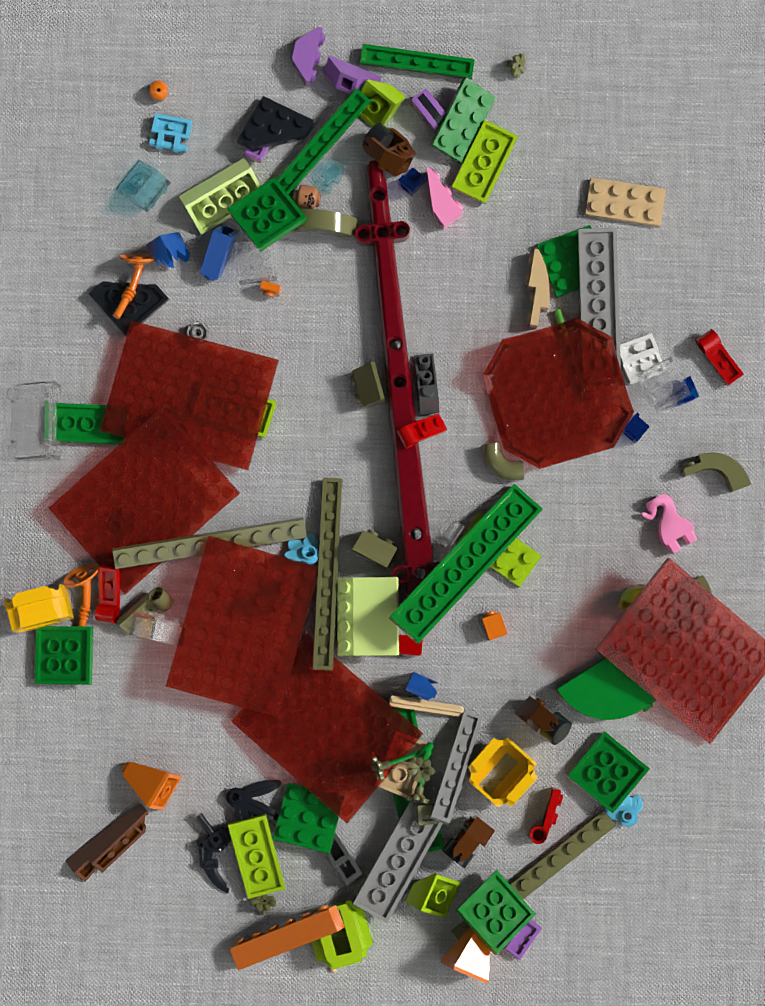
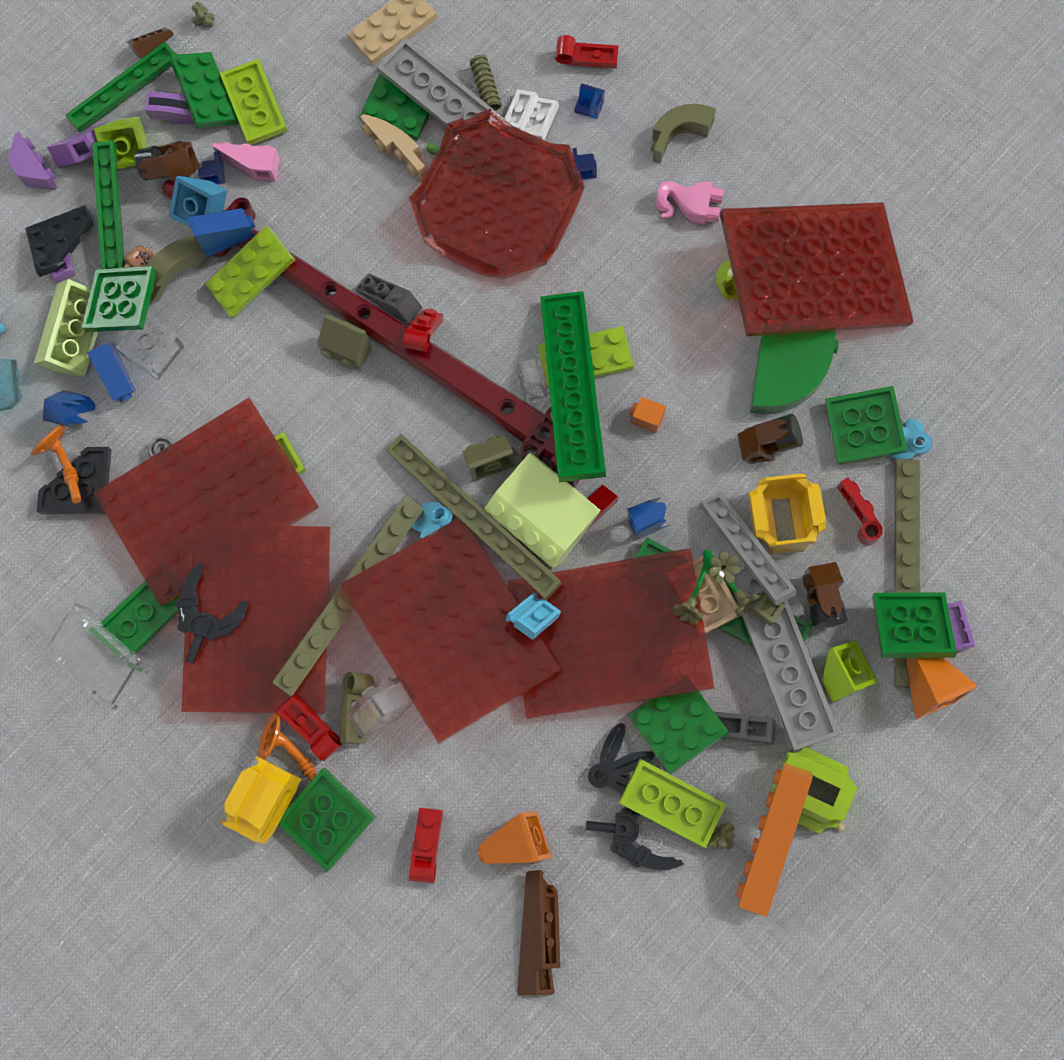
camera: 40 degrees left, 10 degrees down
(102, 729) = (425, 846): none -> red plate
(110, 473) = (203, 624): none -> black bar
(270, 289) = (185, 355): orange plate -> none
(295, 672) = (533, 616): none -> medium azure plate
(332, 173) = (142, 227): clear light blue plate -> none
(362, 278) = (250, 271): none -> lime plate
(371, 238) = (221, 230): none -> blue slope
(375, 202) = (195, 198): none -> dark azure slope
(426, 706) = (668, 530): tan axle -> none
(466, 48) = (146, 43): none -> reddish brown slope
(499, 465) = (515, 294): olive cylinder -> none
(636, 307) = (485, 81): none -> olive piece
(663, 384) = (568, 107): clear brick -> none

